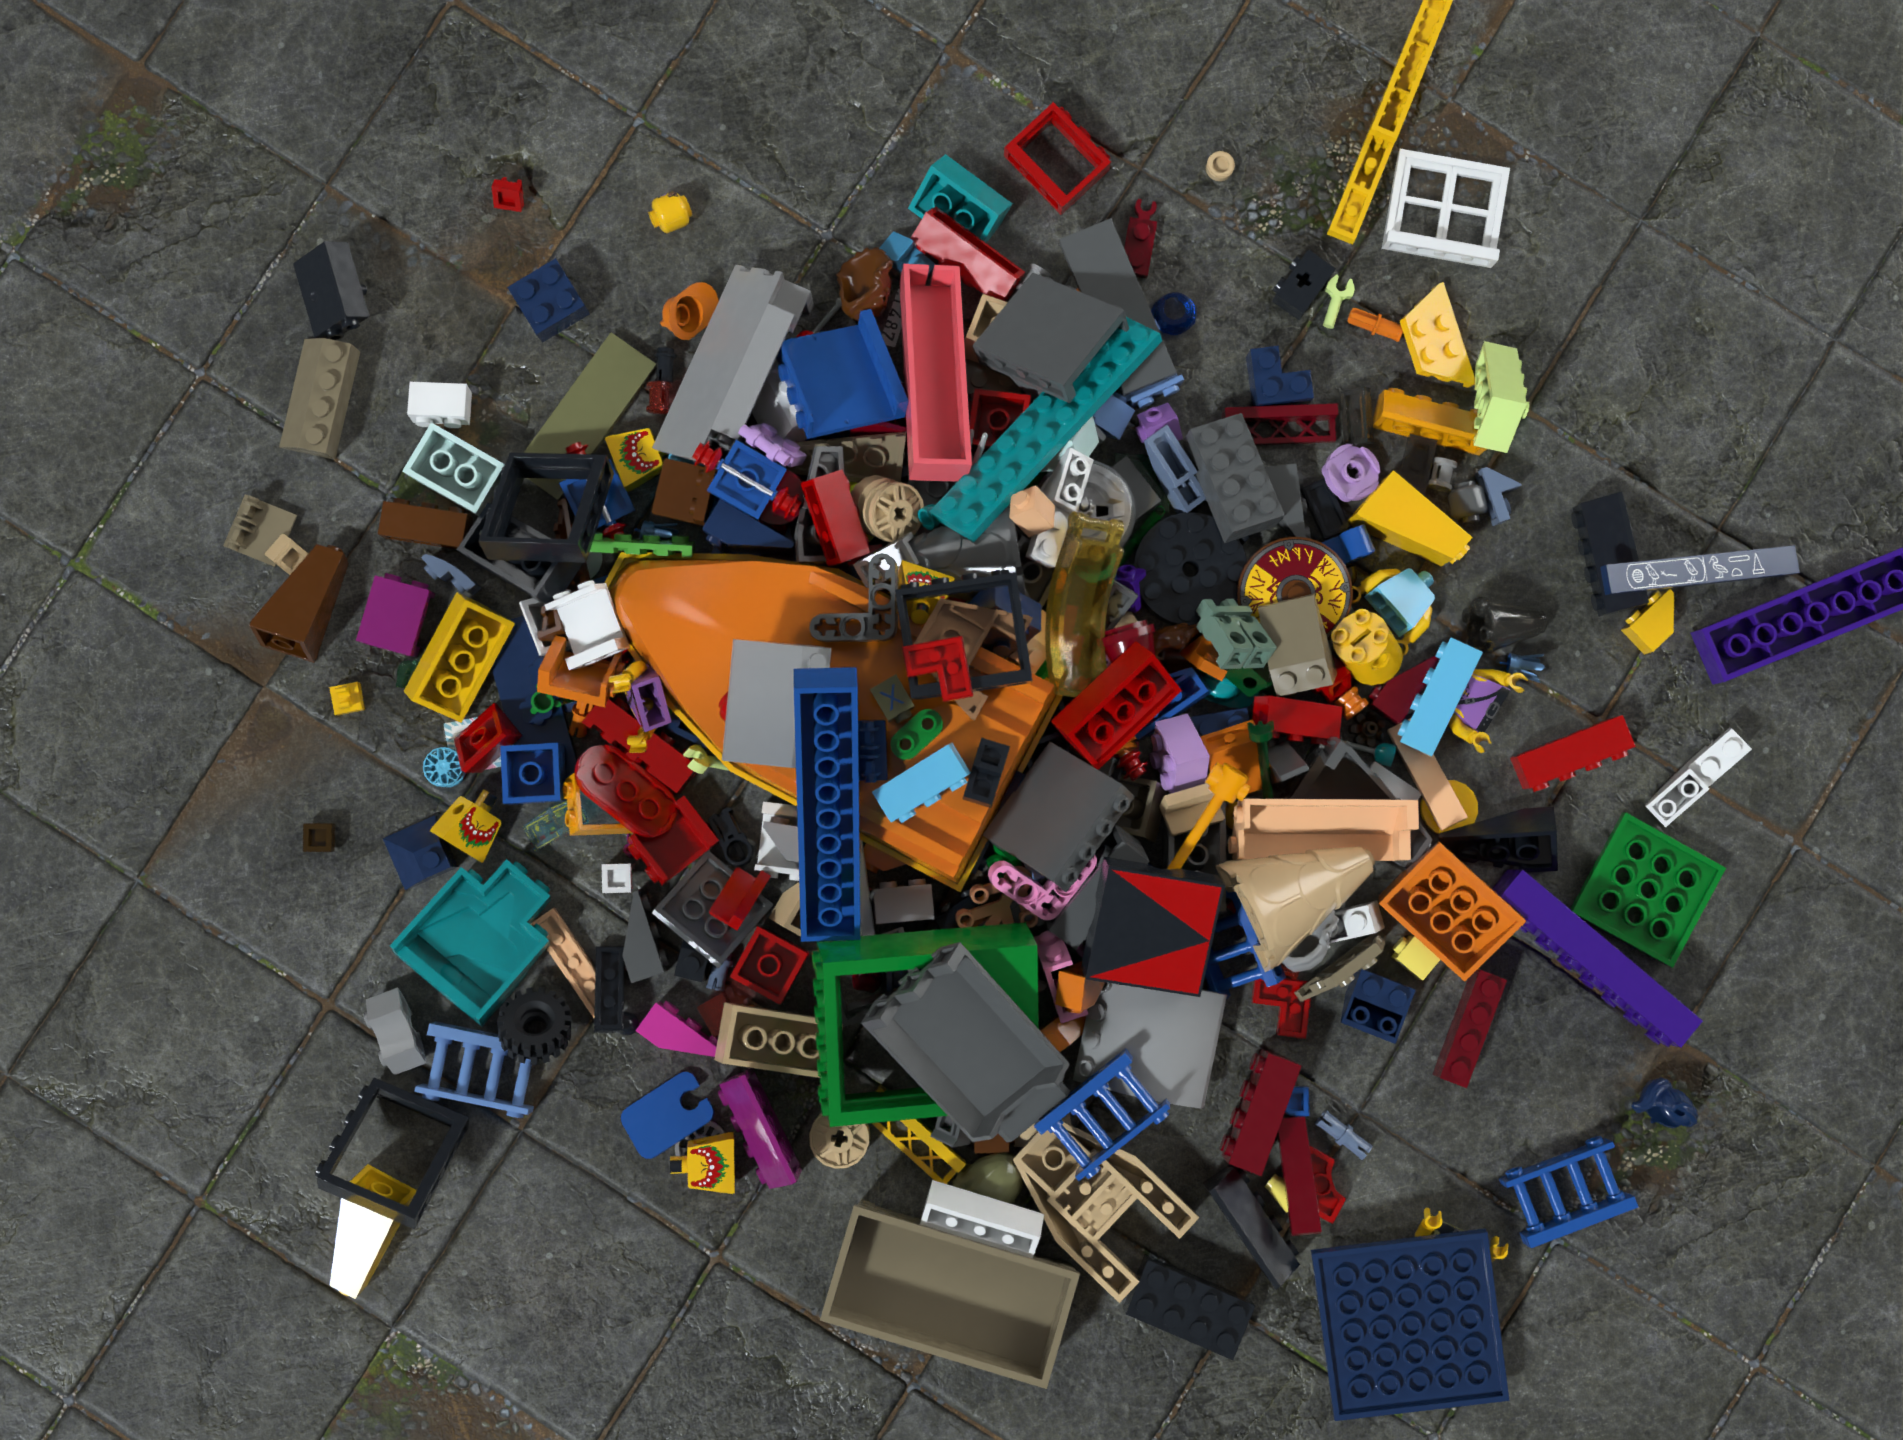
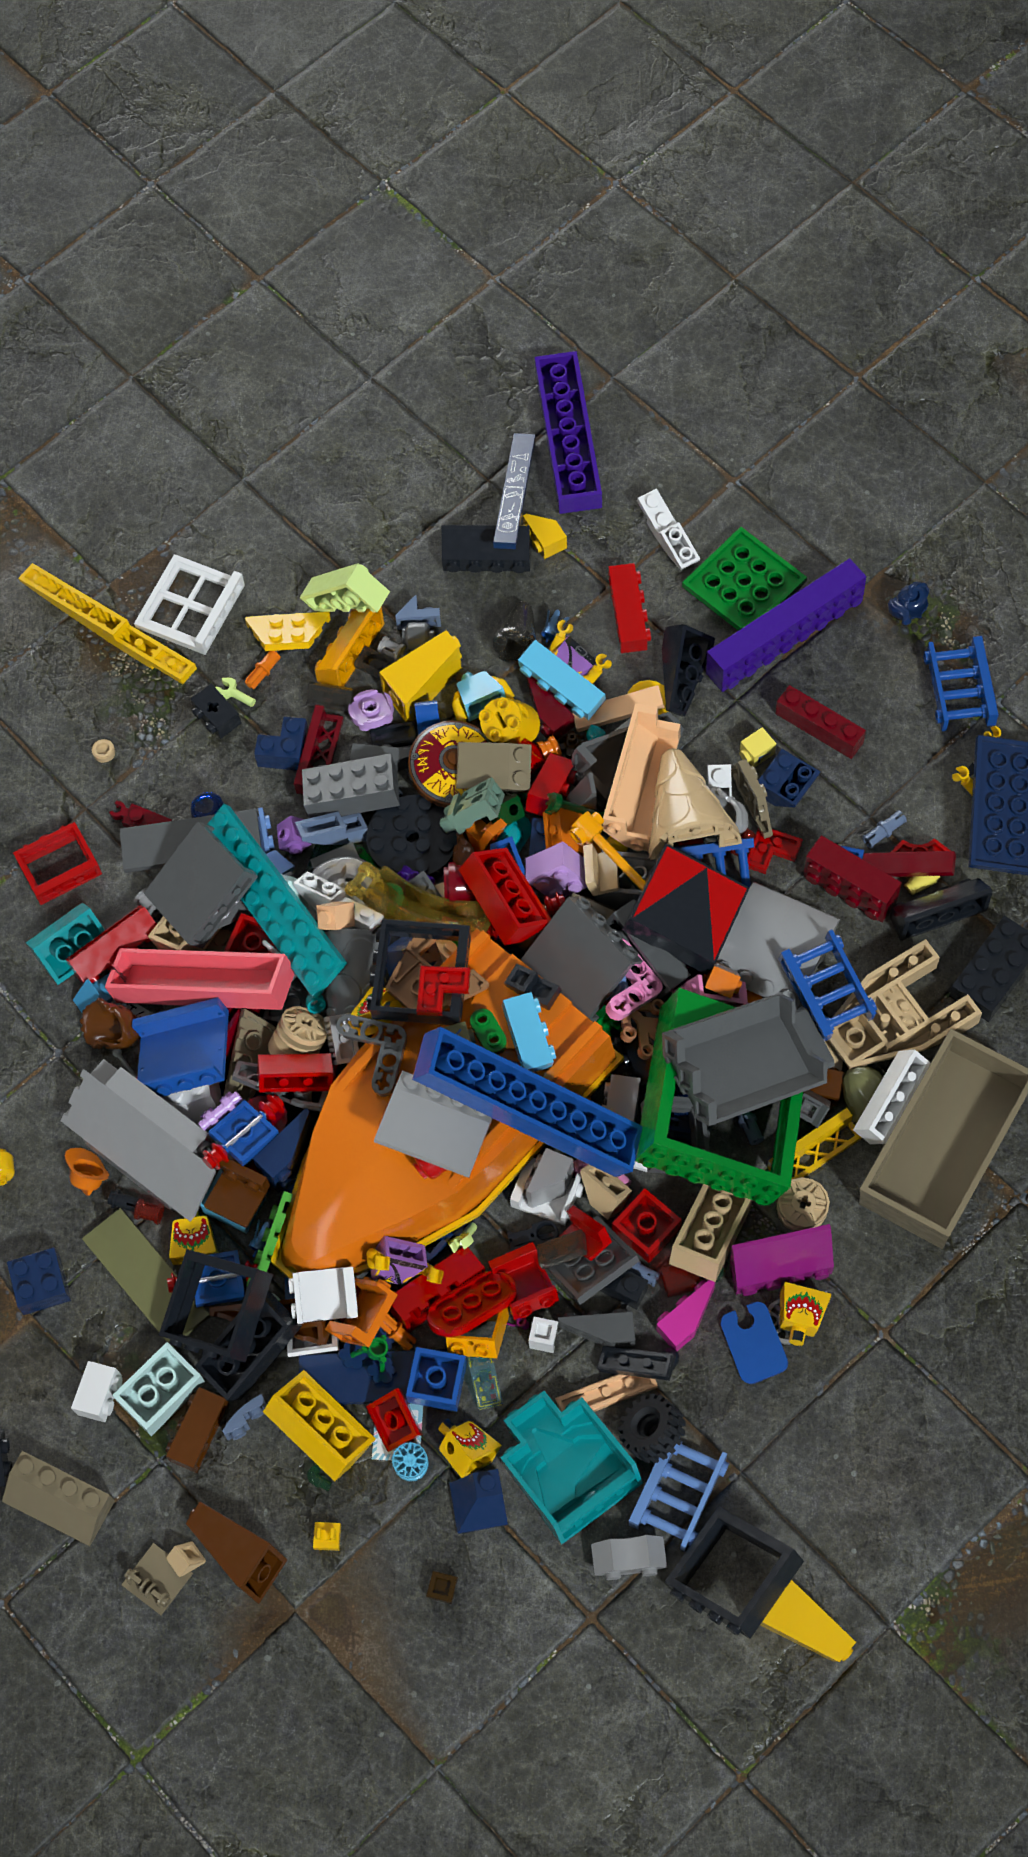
camera: 70 degrees left, 20 degrees down
(394, 615) = (268, 1472): magenta panel -> none
(717, 875) = (562, 1249): none -> clear smoke plate
(1451, 910) = (726, 710): orange slope -> none

